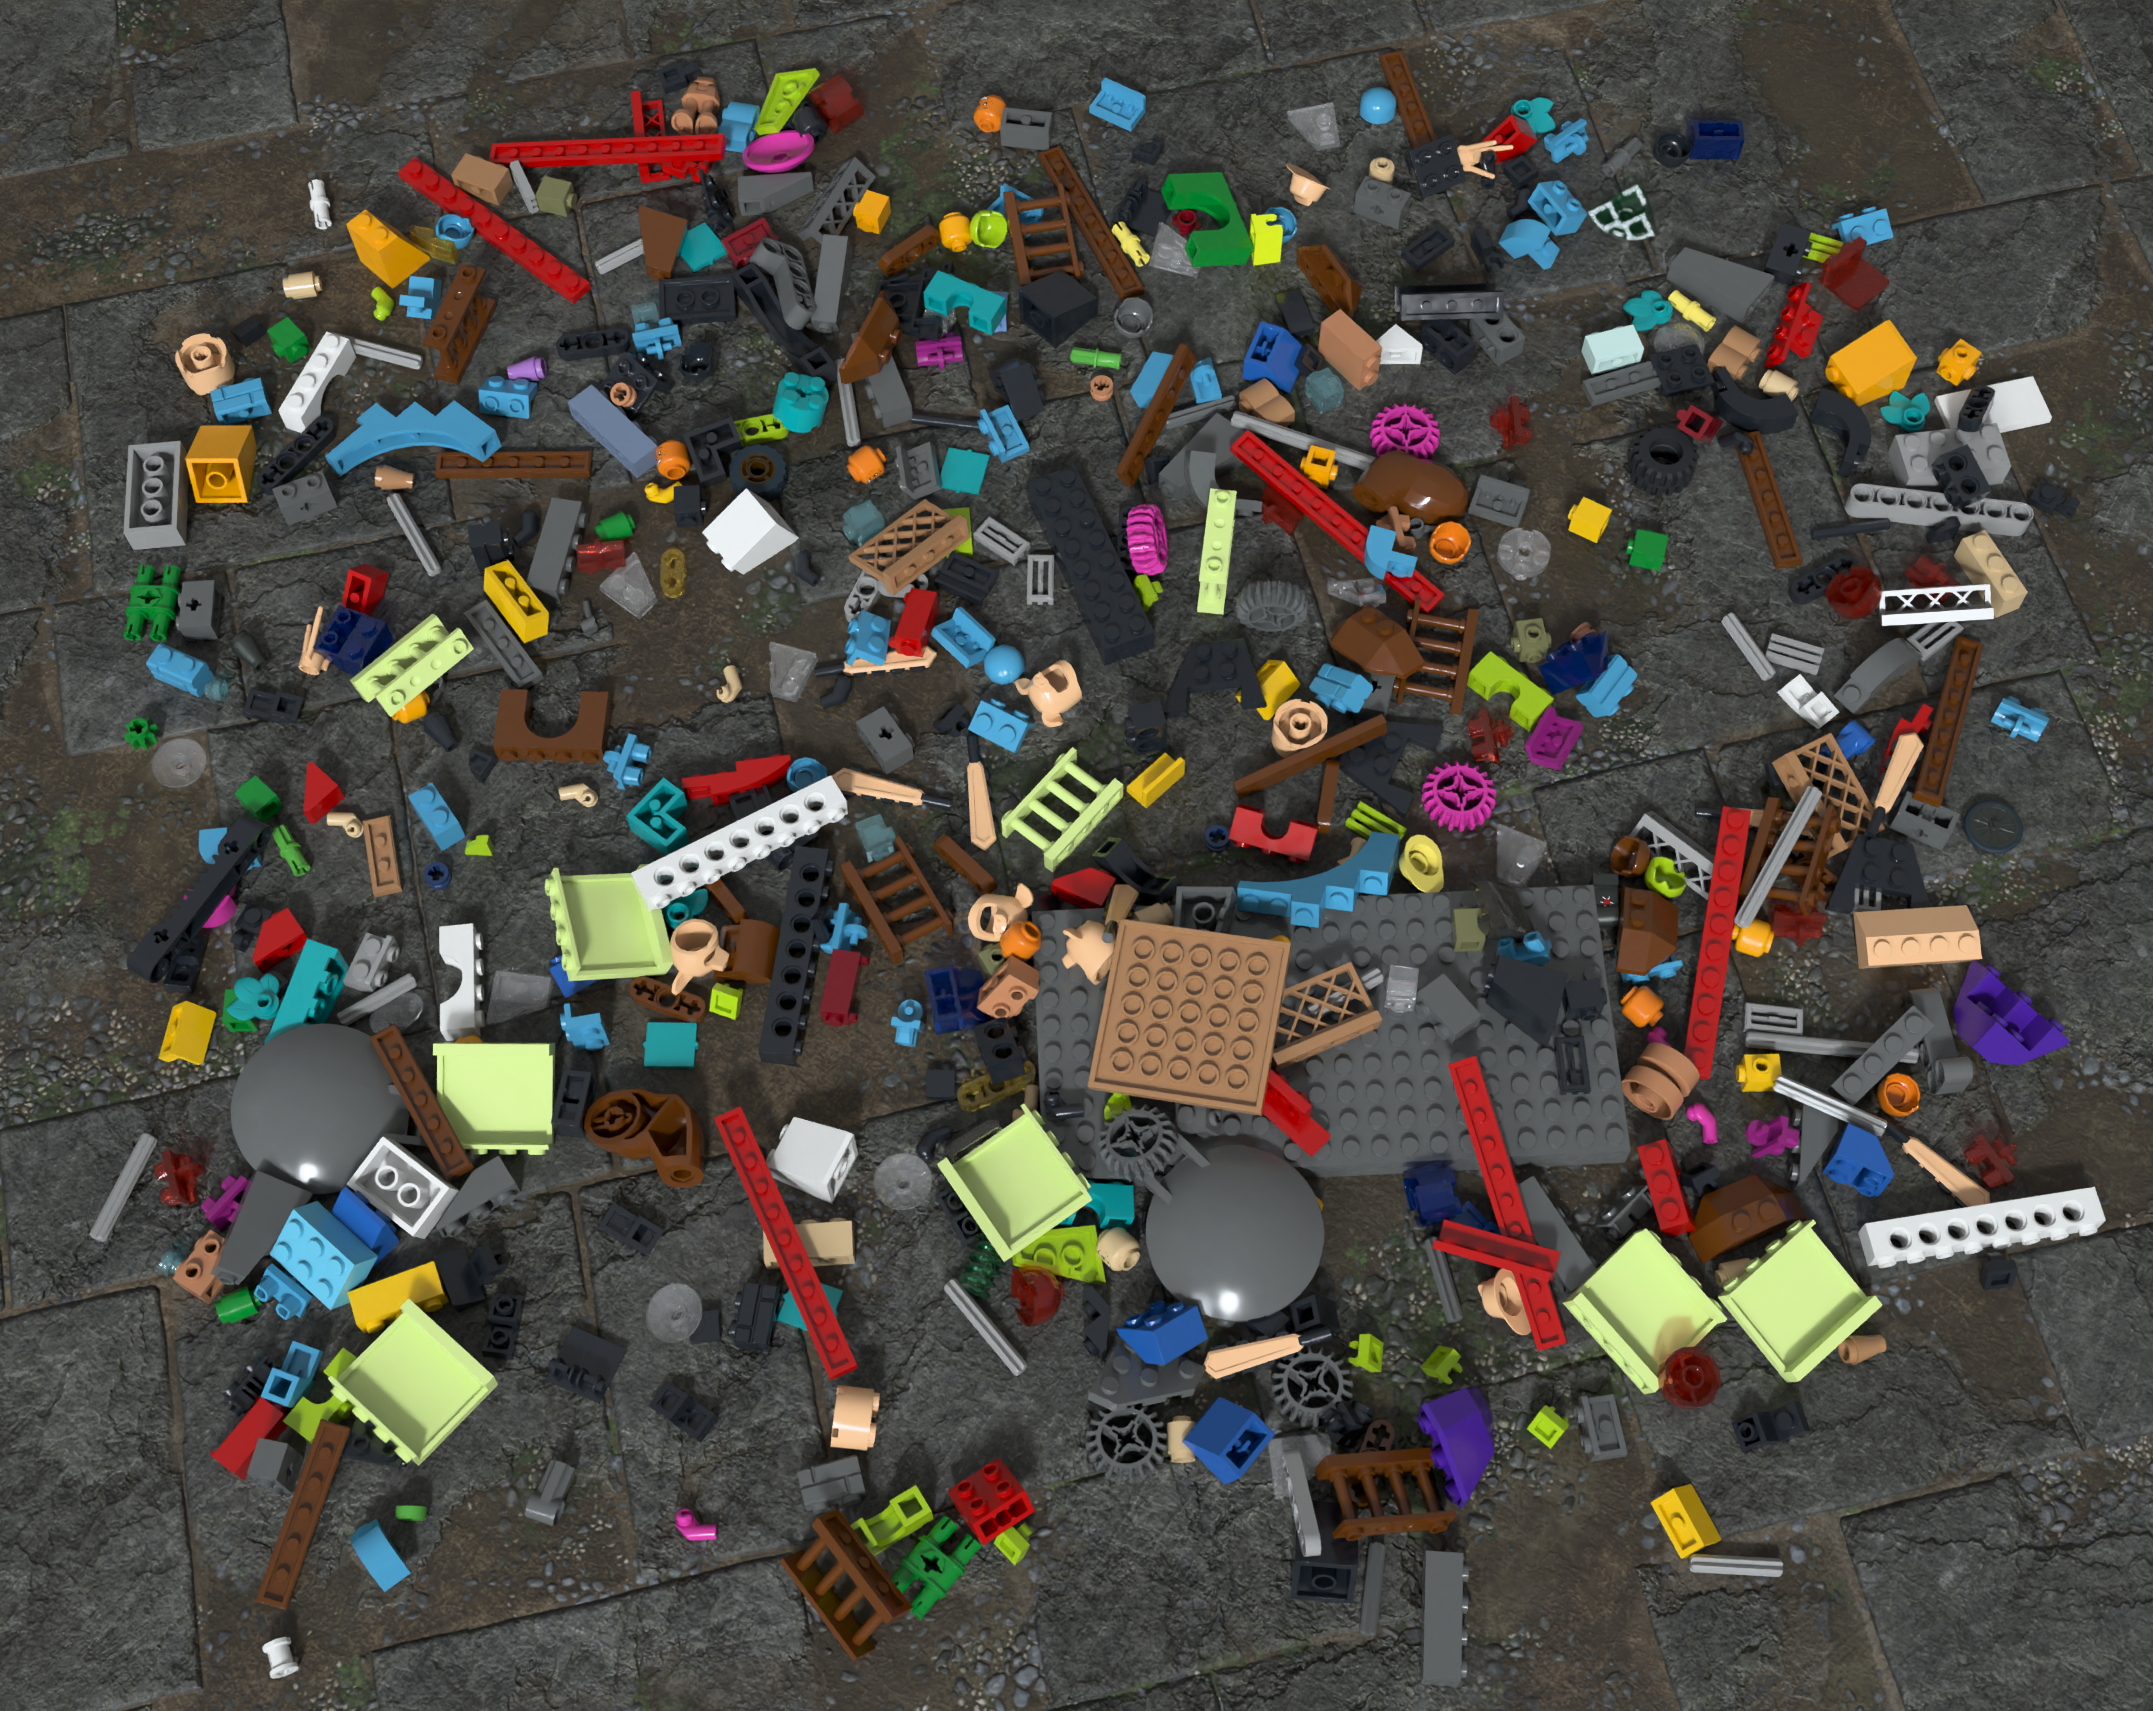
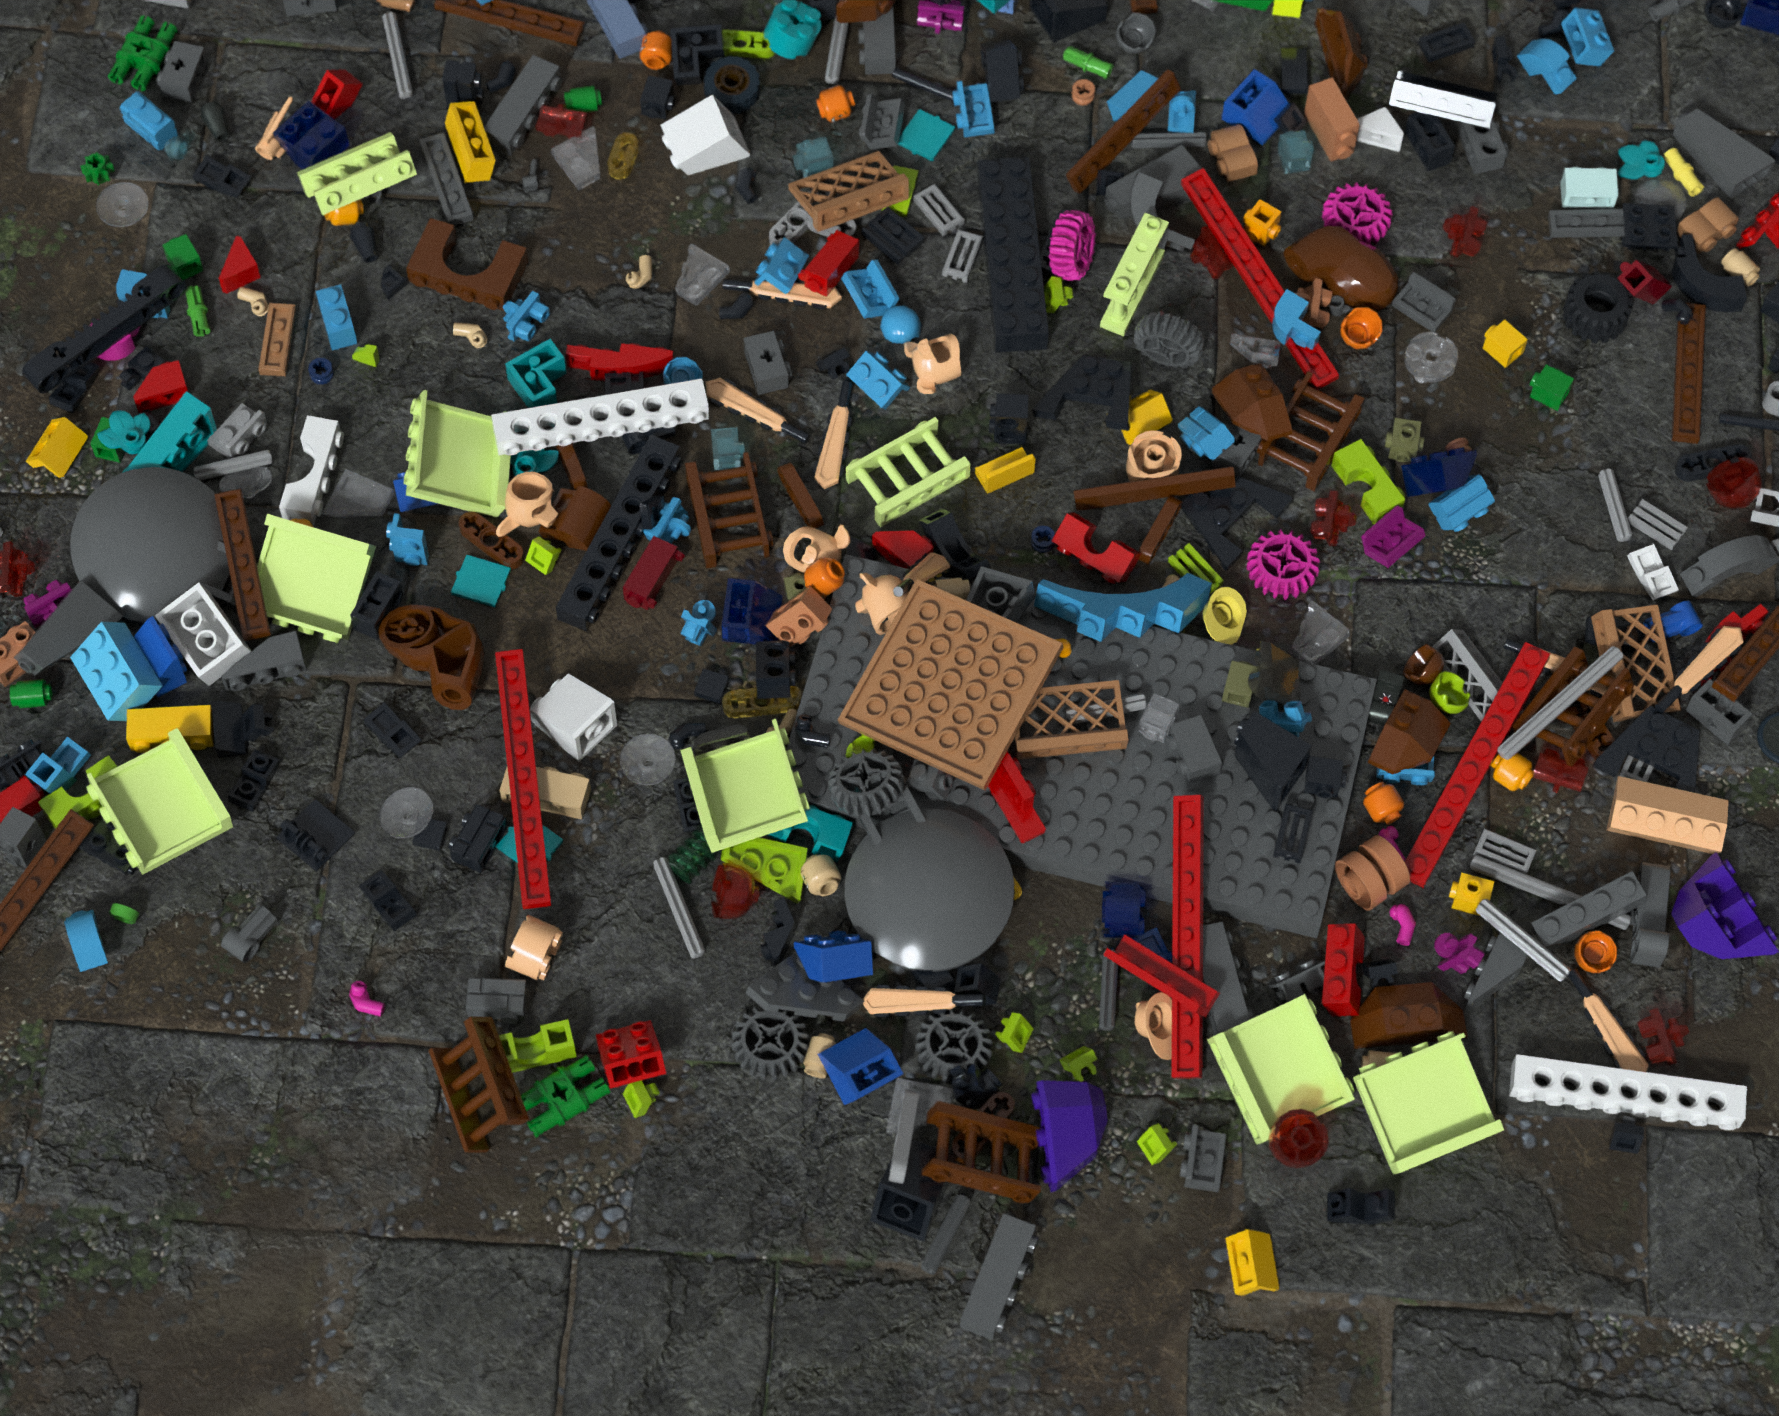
camera: 15 degrees right, 0 degrees up
(290, 1293) = (75, 692): dark azure hips -> none
(660, 495) = (634, 80): yellow arm -> none
(1298, 439) = (1251, 190): light grey axle -> none
(1626, 214) = (1654, 61): clear green brick -> none
(1736, 1565) = (1283, 1314): light grey axle -> none
(1859, 1162) = (1530, 998): blue slope -> none
(1861, 1347) = (1470, 1163): medium nougat cone -> none

